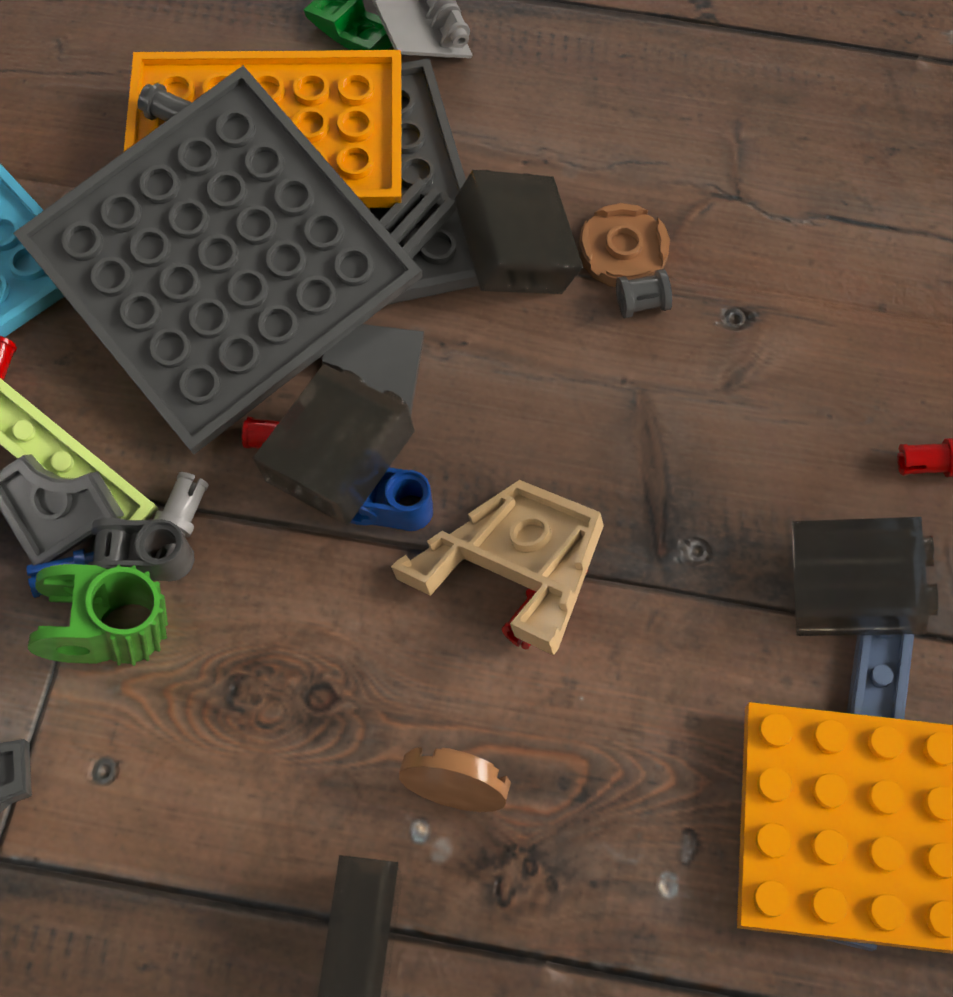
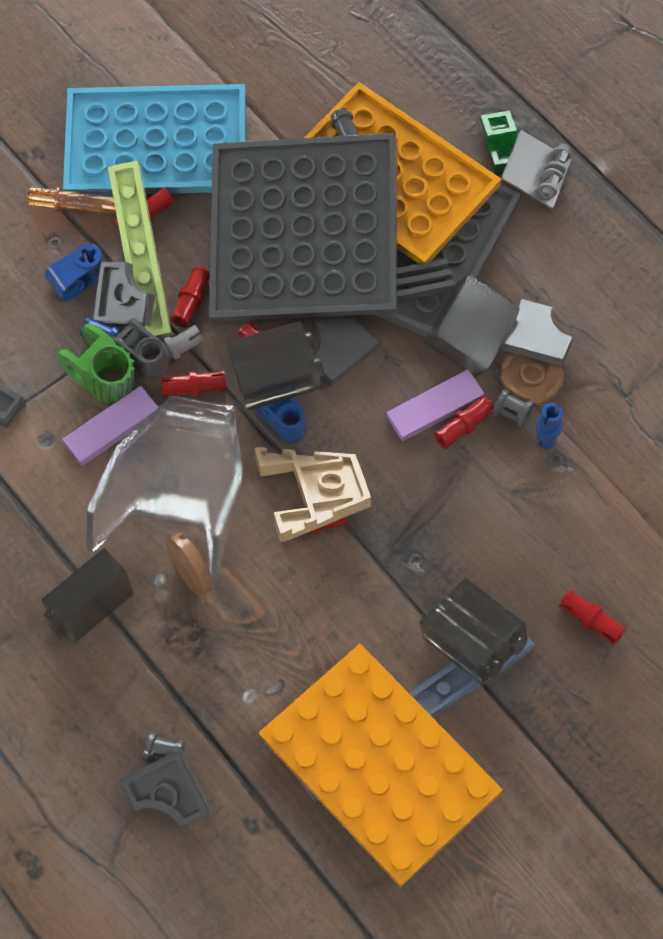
camera: 45 degrees right, 0 degrees up
(140, 444) = (190, 297): none -> red pin
(177, 684) = (110, 426): none -> lavender tile
(240, 546) = (193, 383): none -> red pin
(330, 663) = (173, 468): none -> clear windscreen
(551, 356) = (434, 405): none -> lavender tile
(597, 196) = (536, 335): none -> tile
(605, 349) = (464, 422): none -> red pin
(711, 277) = (549, 425): none -> blue pin

